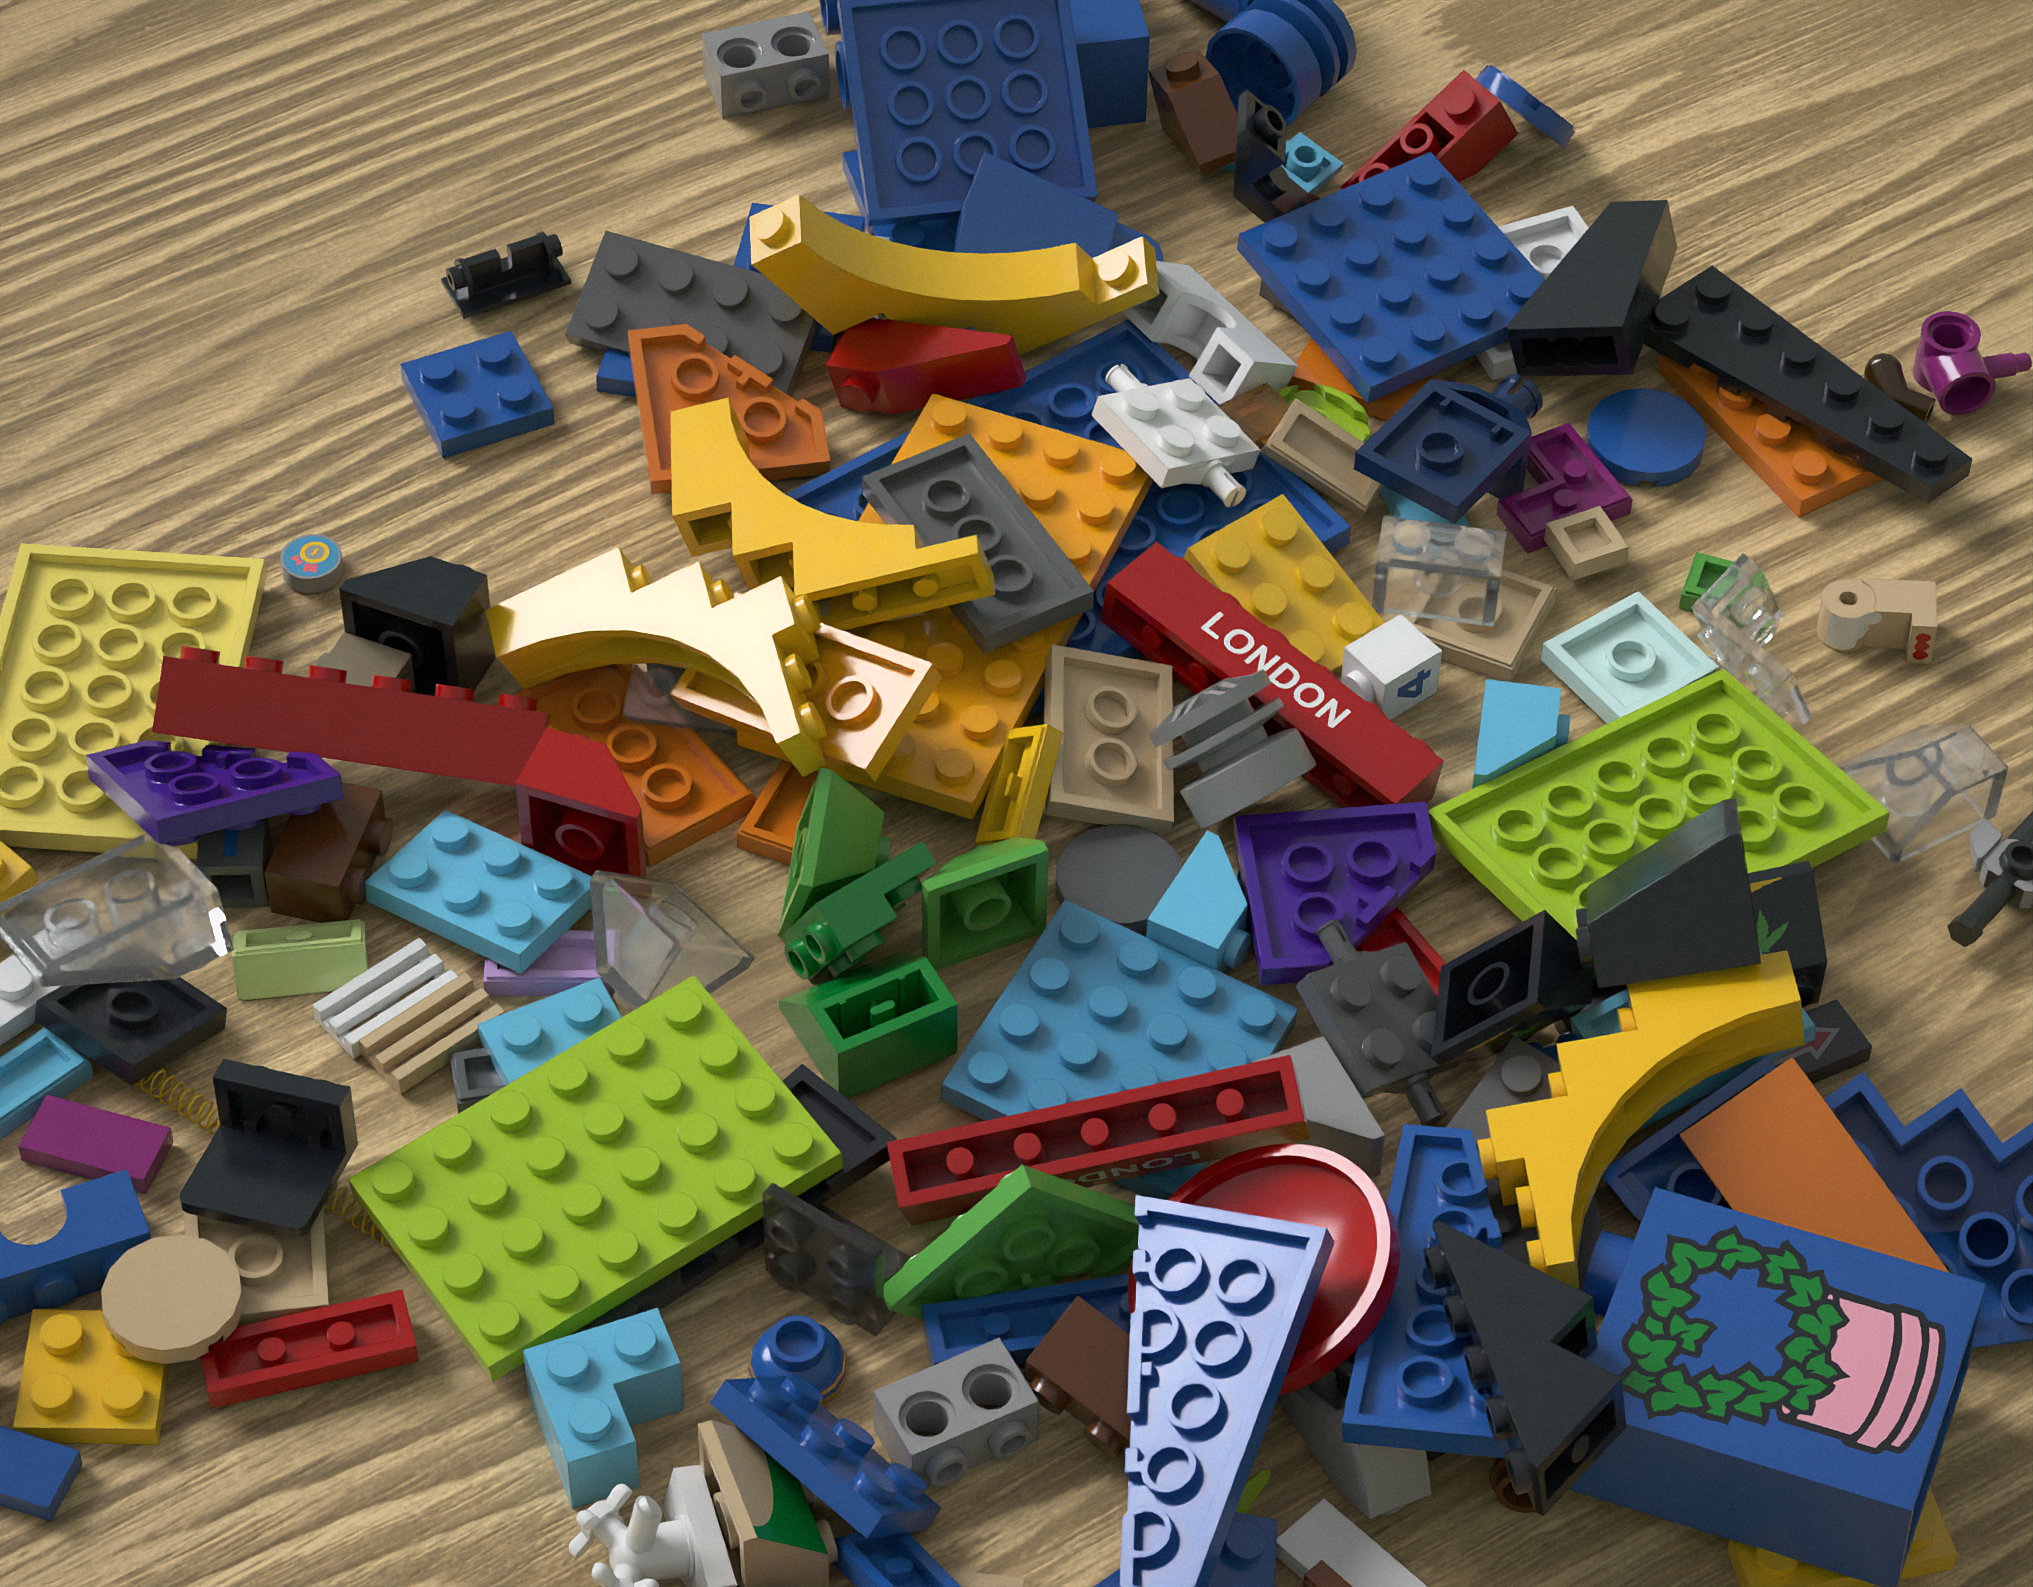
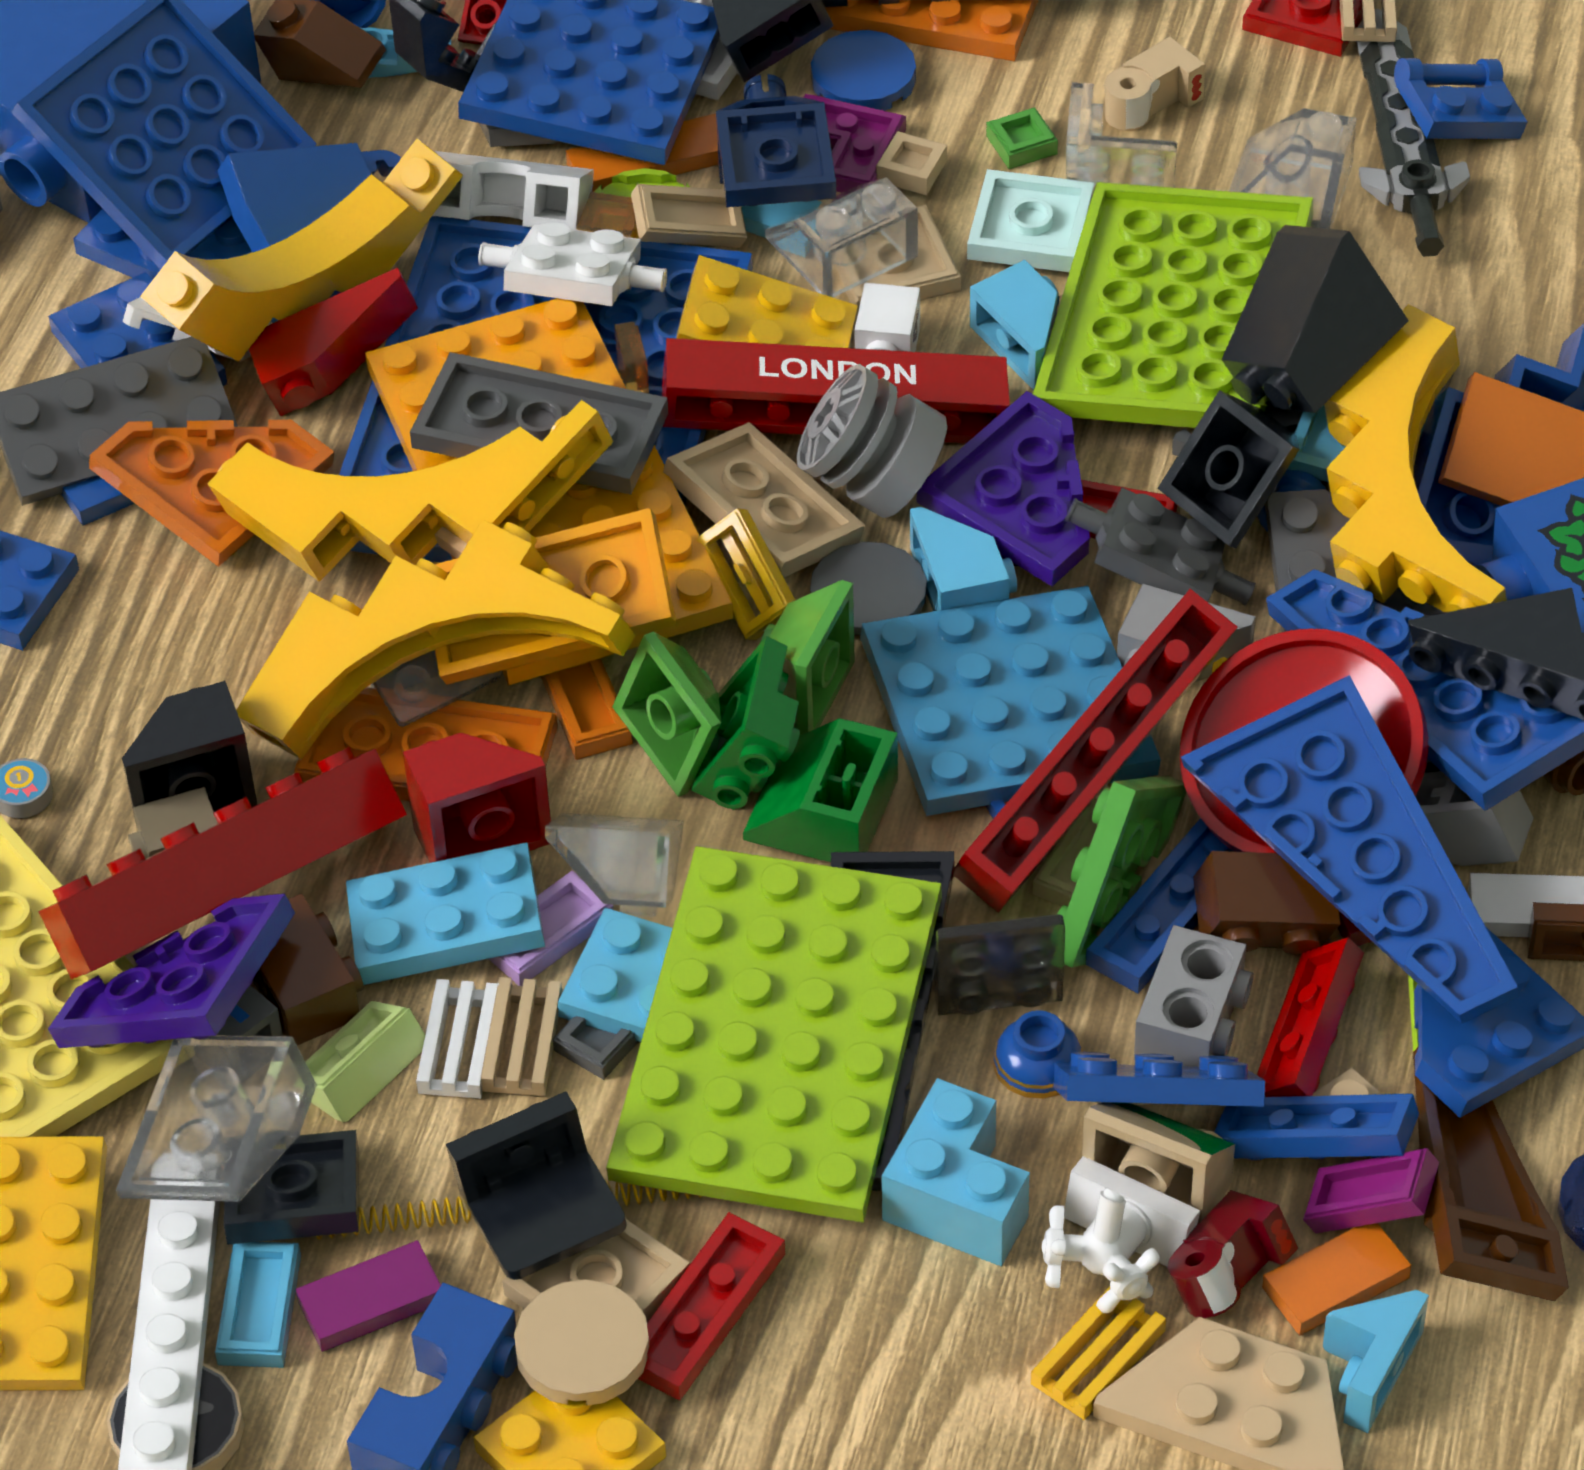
camera: 40 degrees left, 0 degrees up
(1026, 1513) = (1309, 1019): none -> red plate
(1124, 541) = (631, 357): none -> clear orange tile

